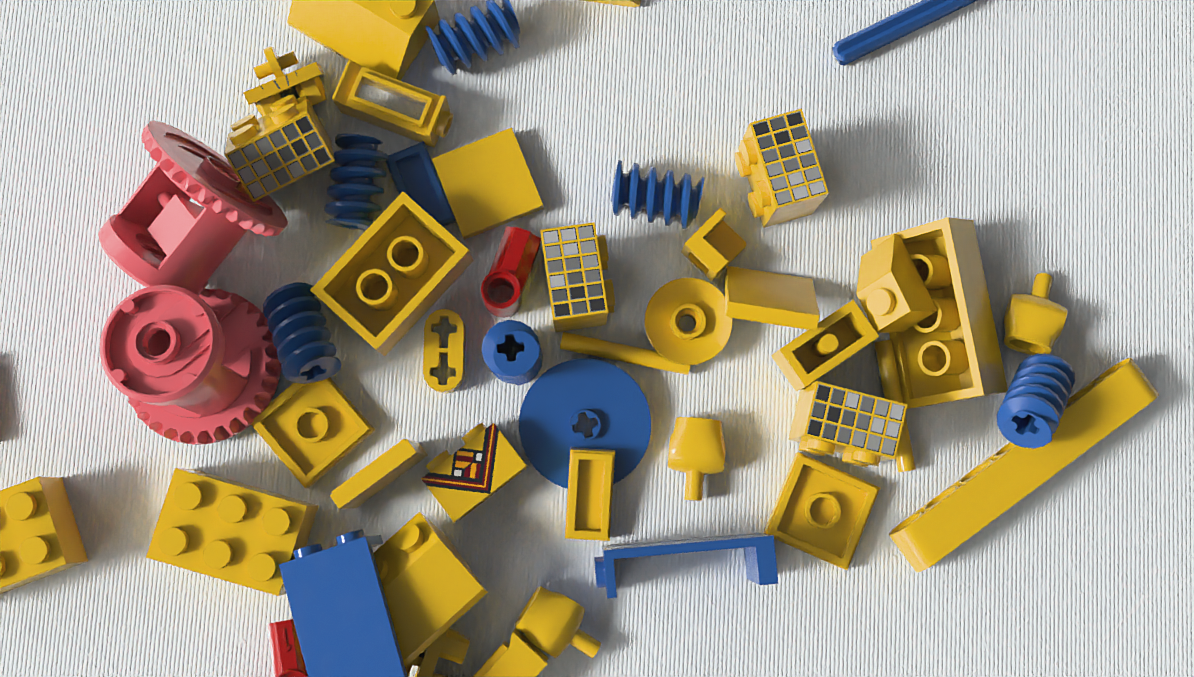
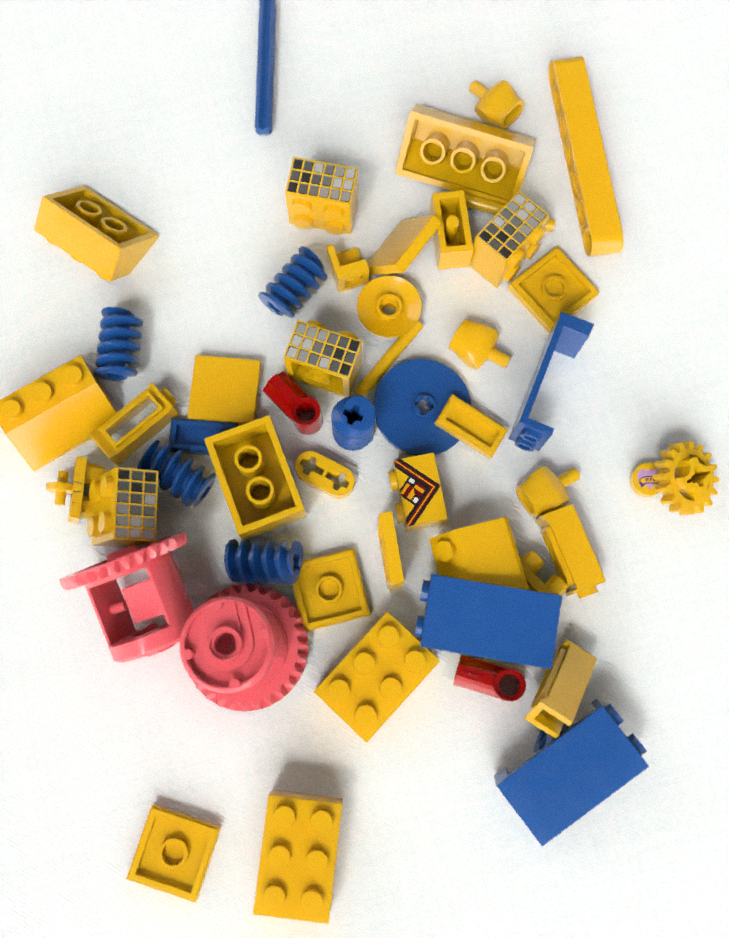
camera: 60 degrees left, 5 degrees down
(892, 288) = (433, 170): yellow slope -> none
(1036, 400) = (551, 123): blue piece -> none

